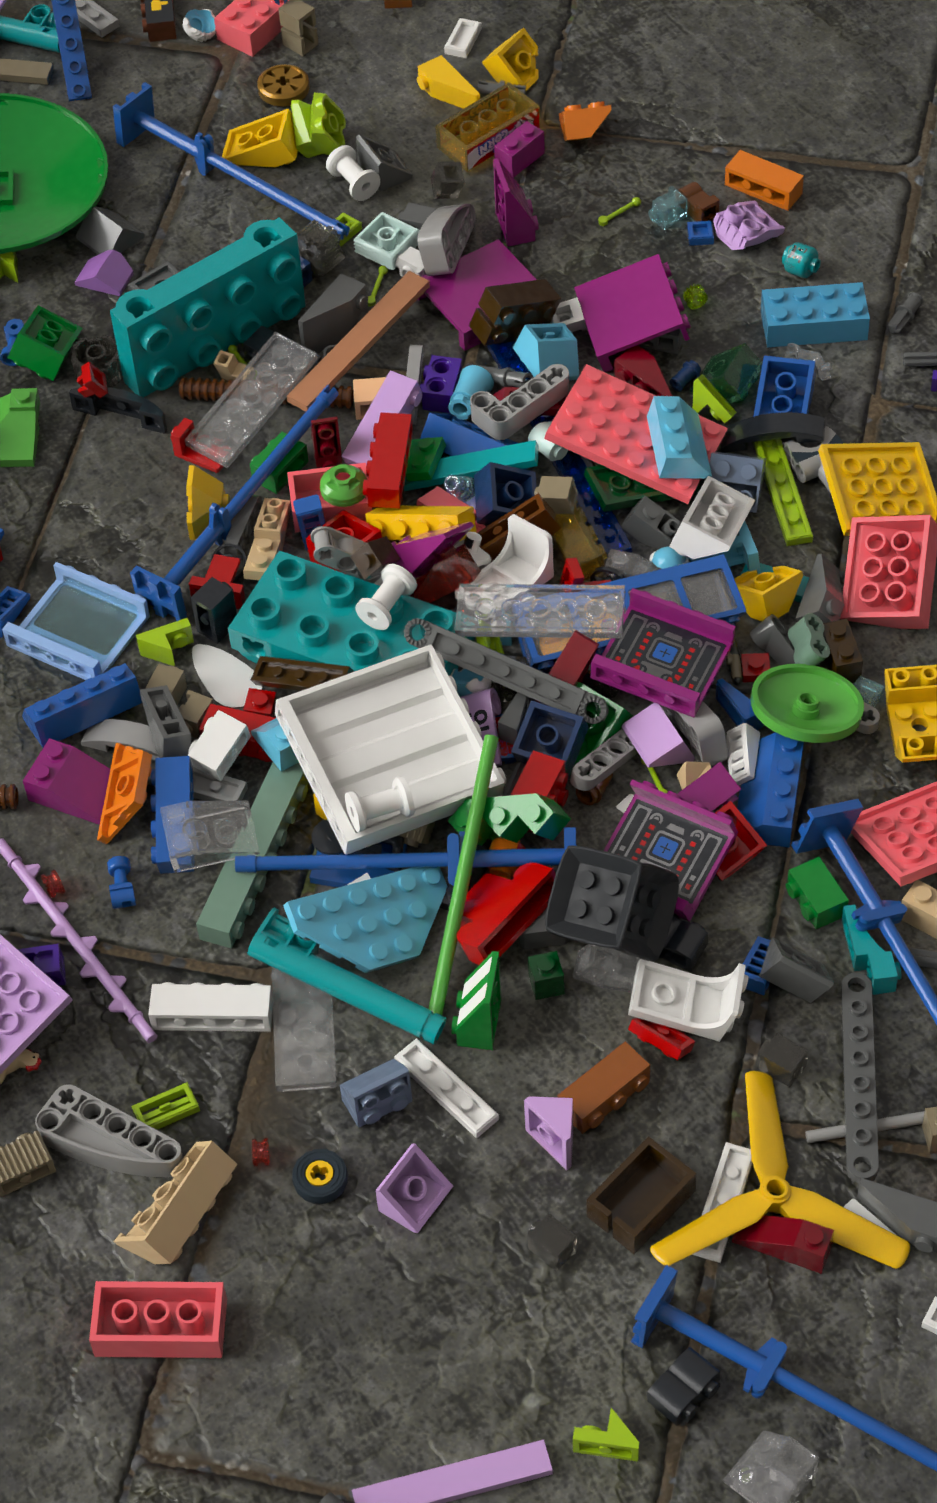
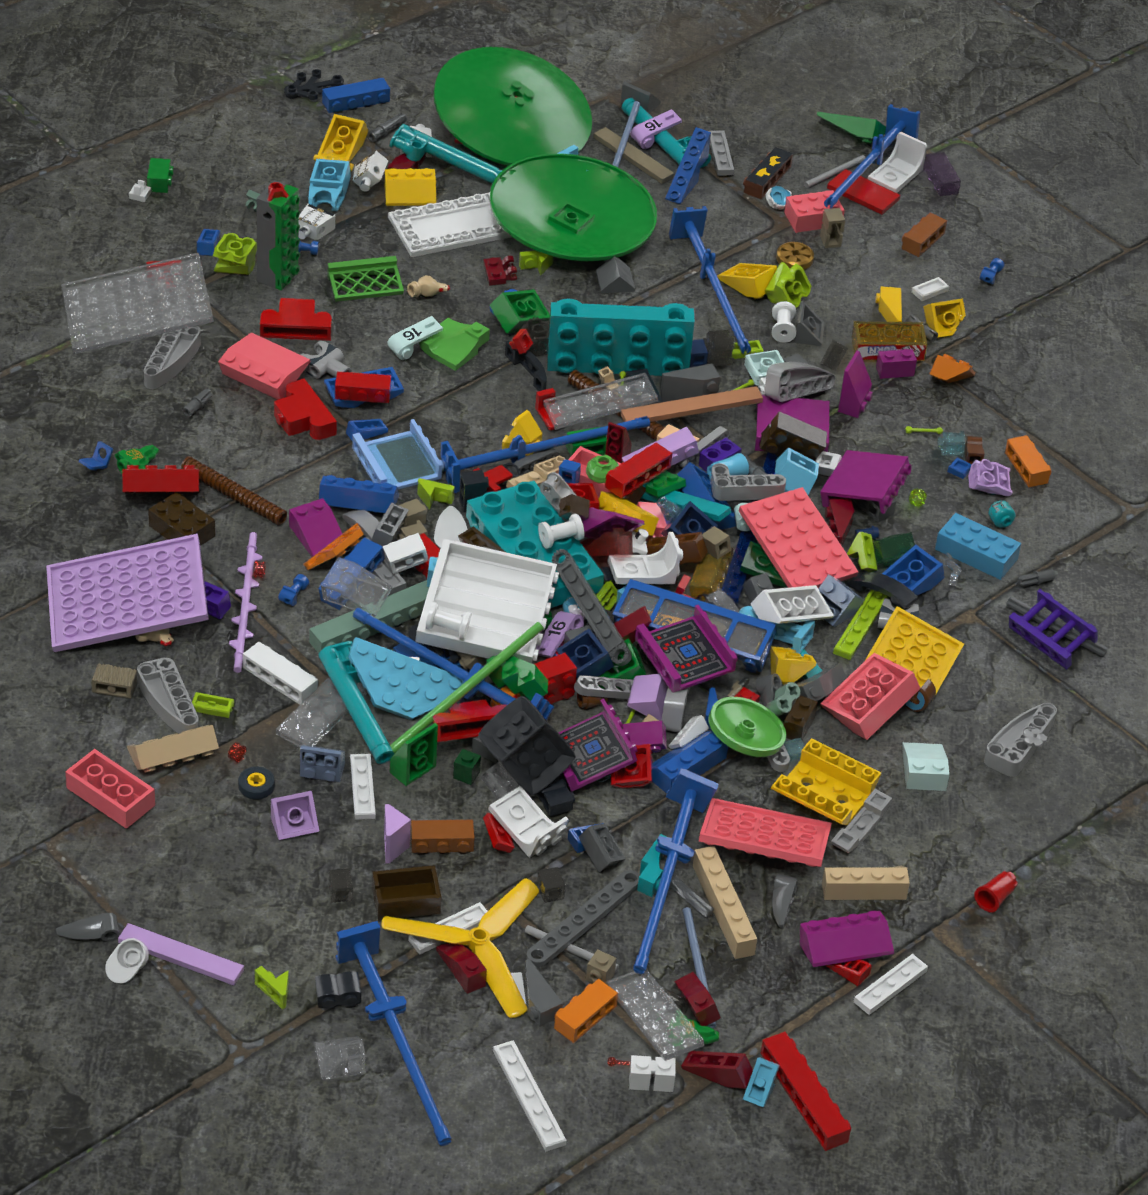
camera: 30 degrees right, 10 degrees down
(106, 273) = (592, 294): medium lavender slope -> none
(540, 610) = (639, 587): clear plate -> none
(677, 439) = (815, 555): medium azure slope -> none
(816, 892) = (656, 820): green piece -> none

